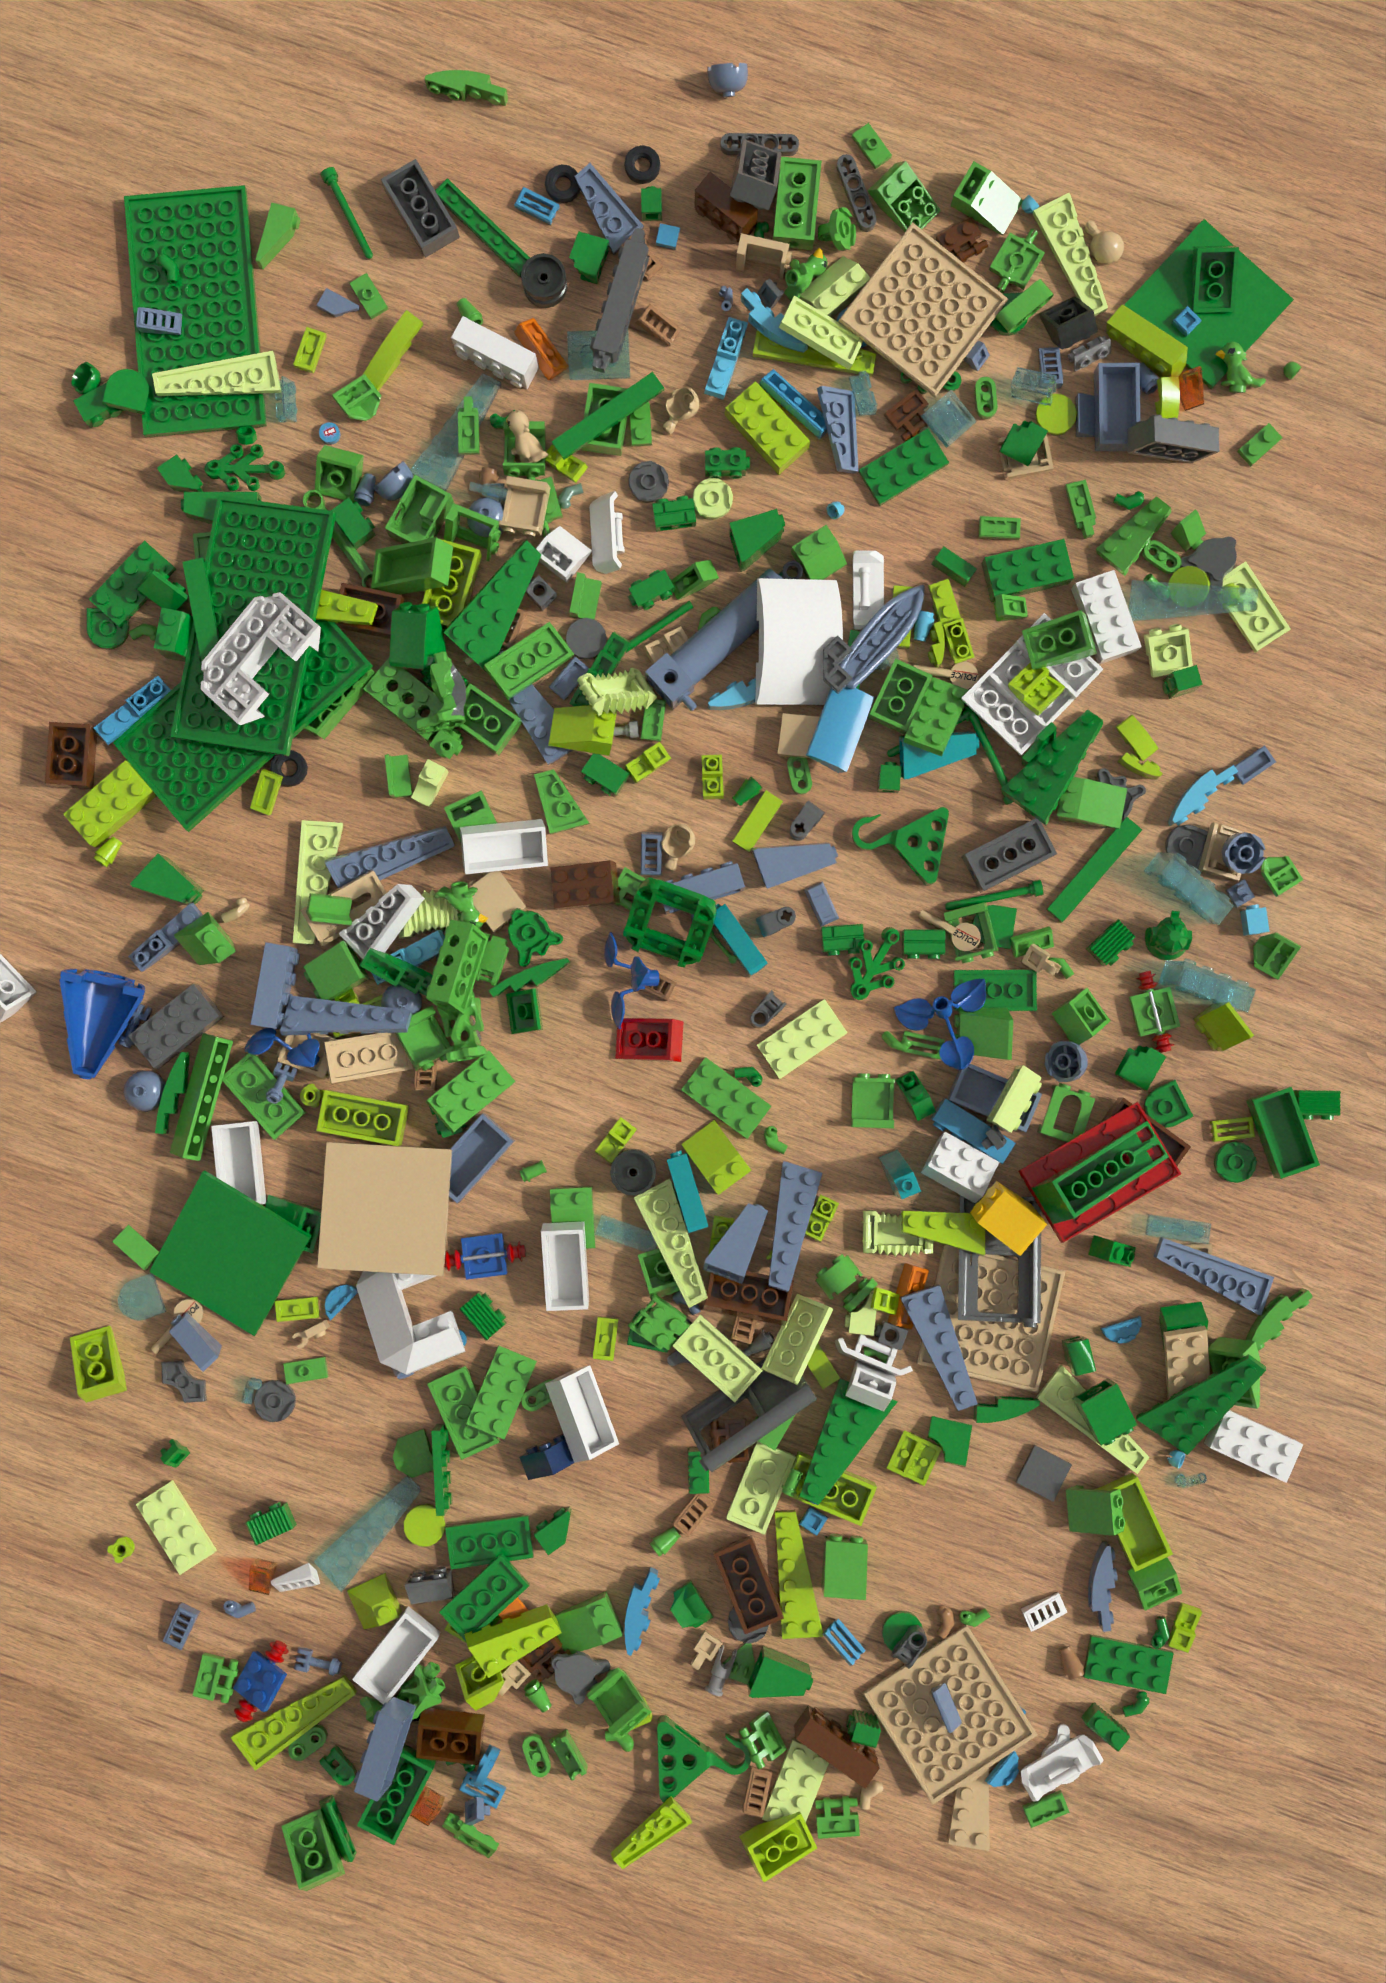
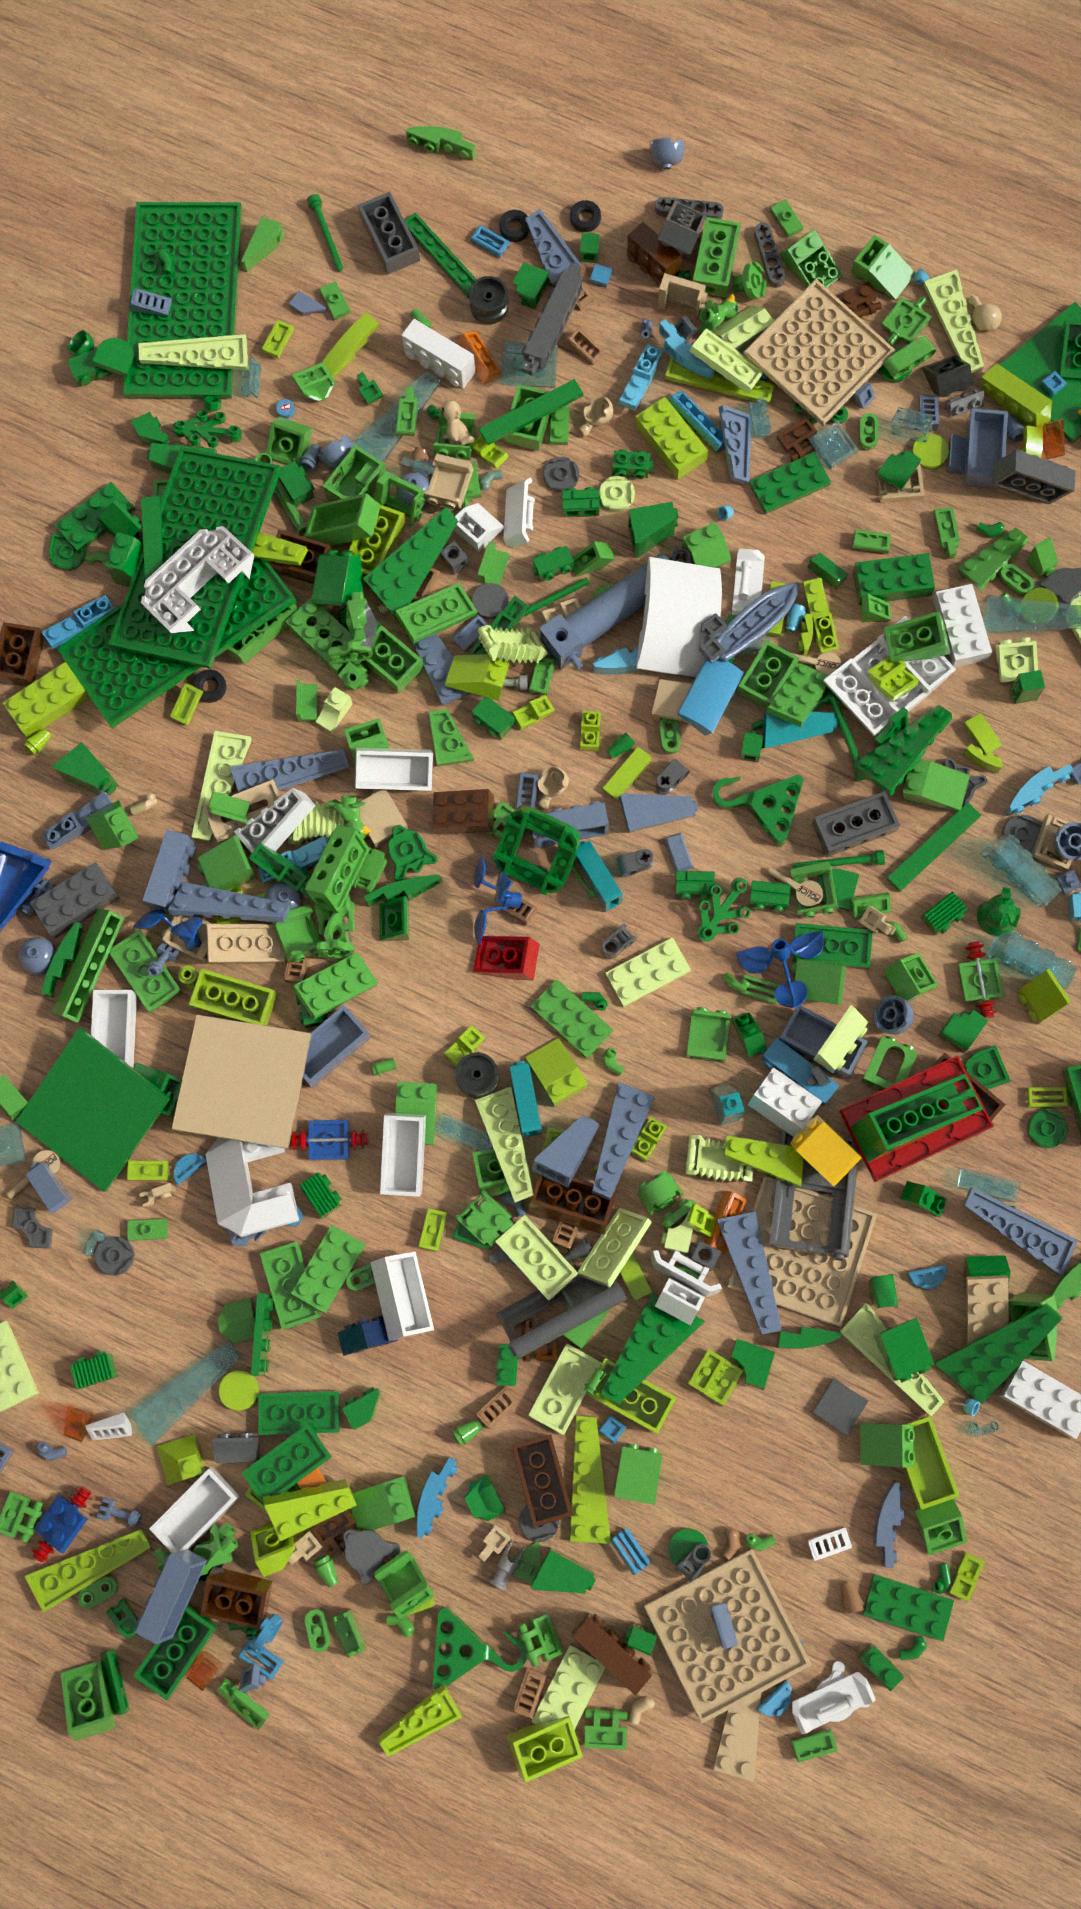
camera: 15 degrees right, 10 degrees down
(421, 402) = (368, 390): none -> green plate

